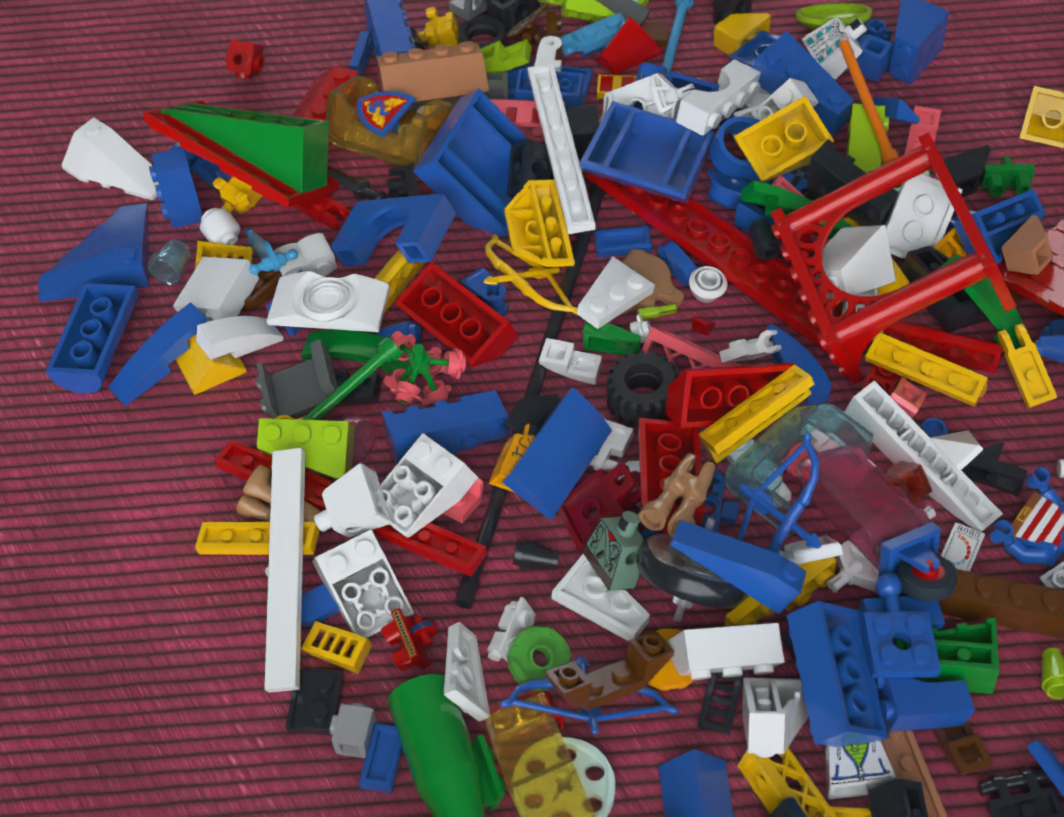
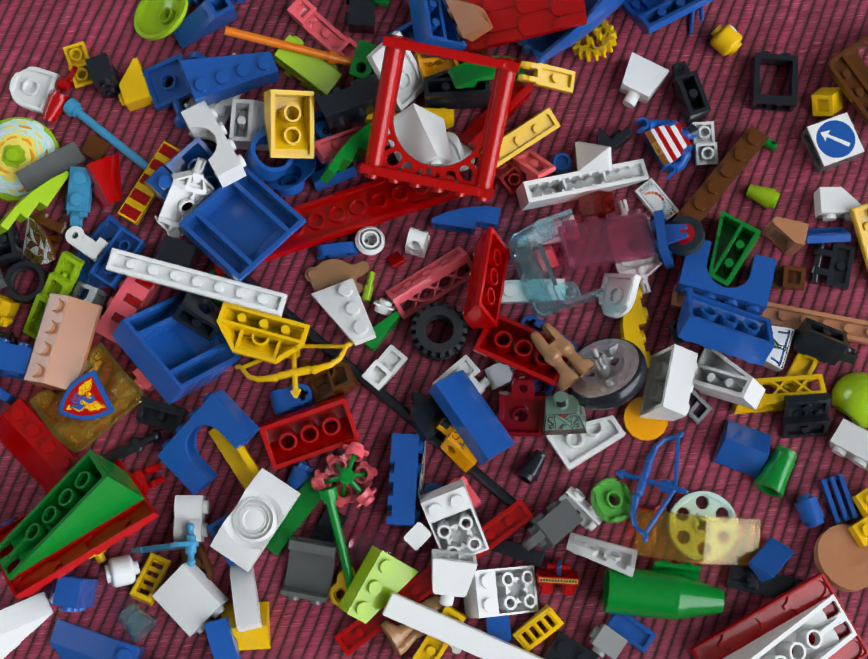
camera: 70 degrees left, 25 degrees up
(382, 455) = (417, 536): none -> white slope
(421, 586) = (519, 552): none -> black piece
(460, 449) = (421, 483): none -> sticker
(468, 597) = (552, 526): none -> dark grey hinge
(528, 318) = (332, 381): none -> reddish brown slope
(621, 241) = (292, 276): blue tile -> none
(643, 660) = (652, 461): reddish brown slope -> none
(729, 513) = (558, 324): blue piece -> none
(734, 321) = (417, 242): none -> white leg
(748, 350) = (447, 246): white plate -> none
(750, 568) = (629, 342): blue wedge -> none
(756, 413) = (510, 270): yellow fence -> none
(763, 240) = (357, 184): black brick -> none
(764, 503) = (587, 305): blue piece -> none
(785, 95) = (251, 103): white slope -> none
(825, 41) = (202, 32): white torso -> none
(896, 110) = (282, 31): blue slope -> none
(910, 626) = (707, 282): blue plate -> none
(1022, 714) = (788, 236): none -> nougat tile

